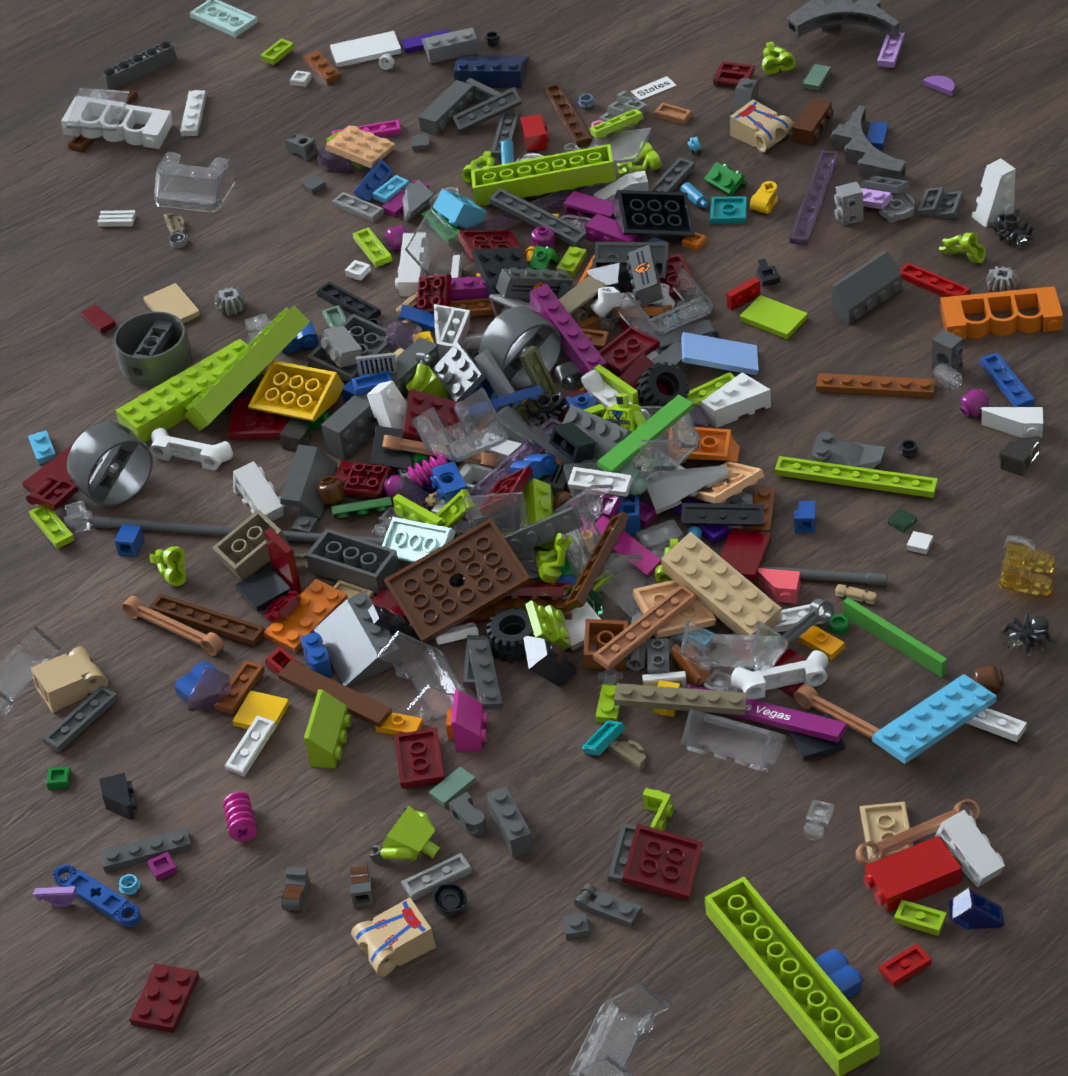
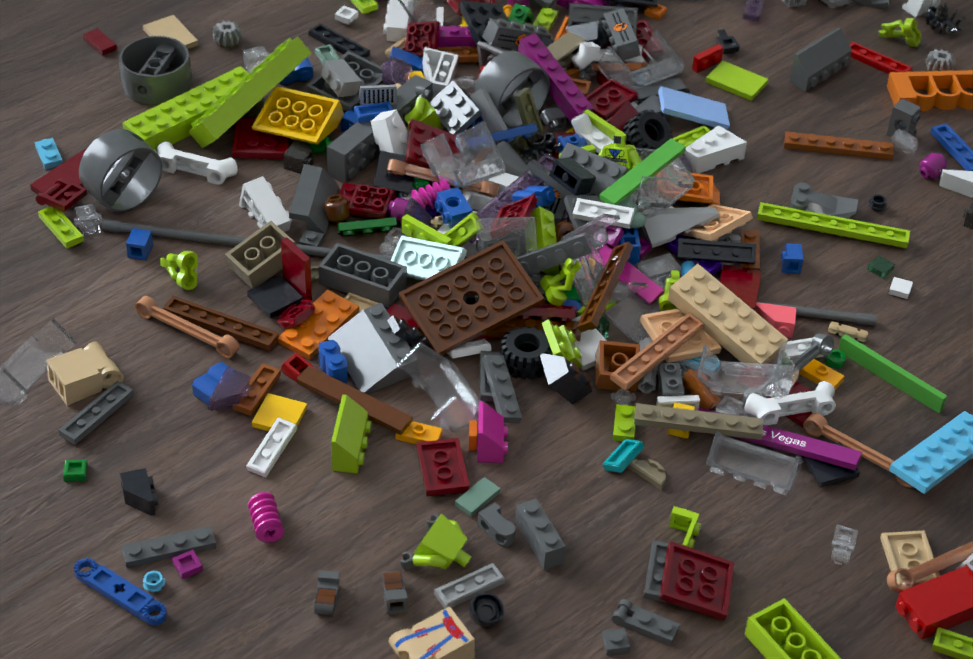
camera: 10 degrees left, 0 degrees up
(57, 896) = (79, 590): medium lavender tile -> none

